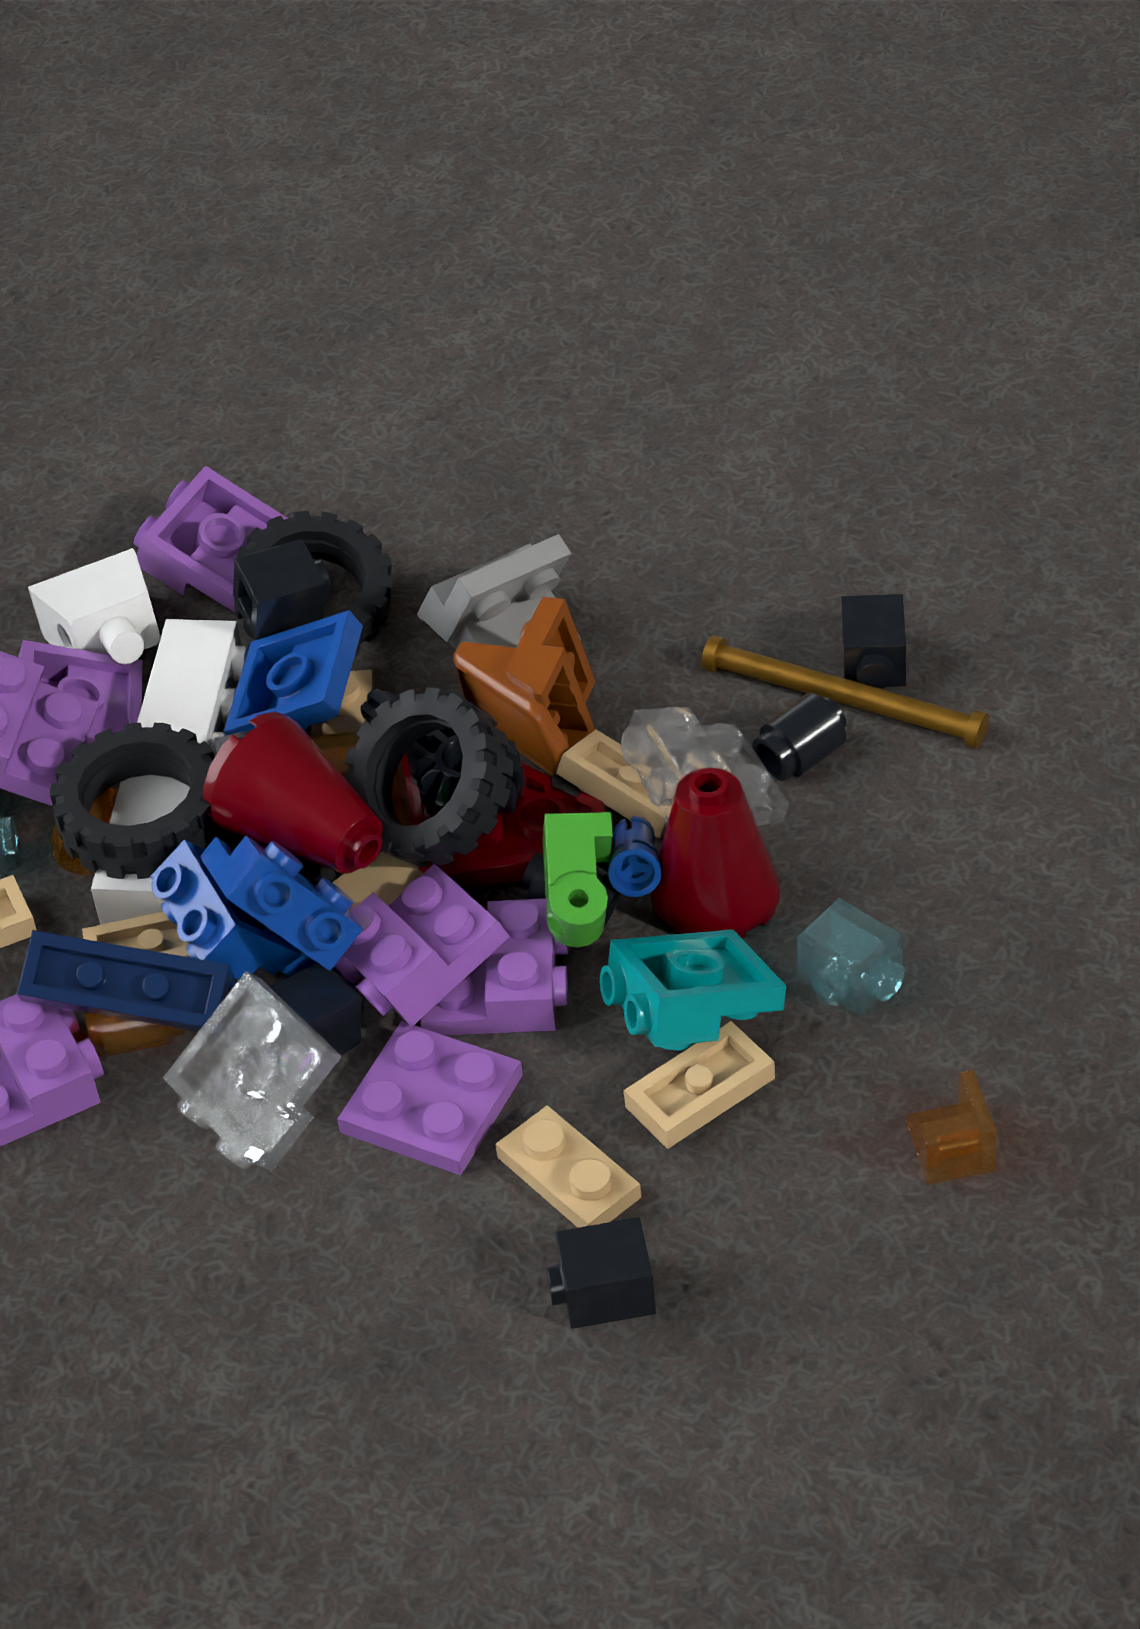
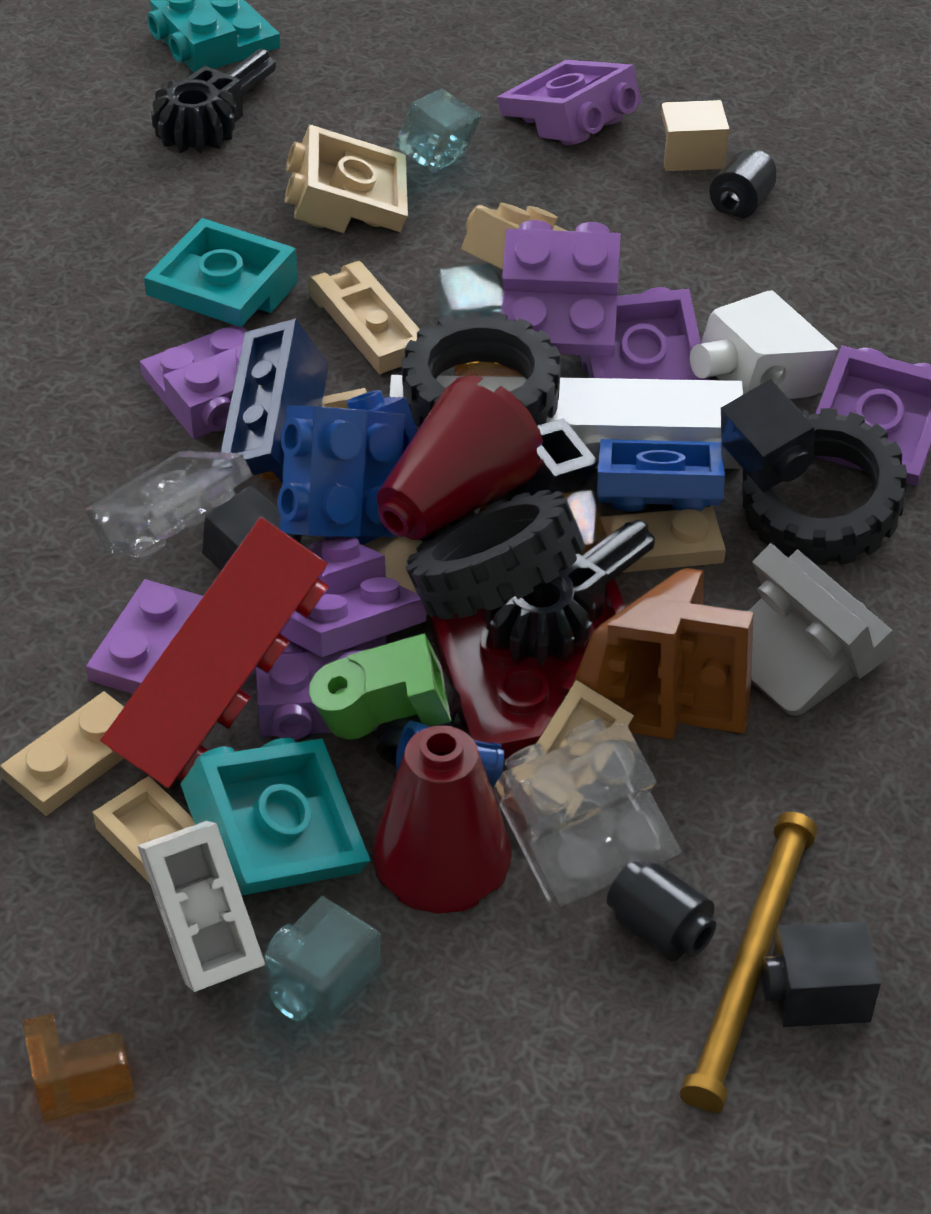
camera: 80 degrees right, 0 degrees up
(518, 998) = (216, 653): none -> red brick
(807, 1016) = (201, 905): none -> white brick

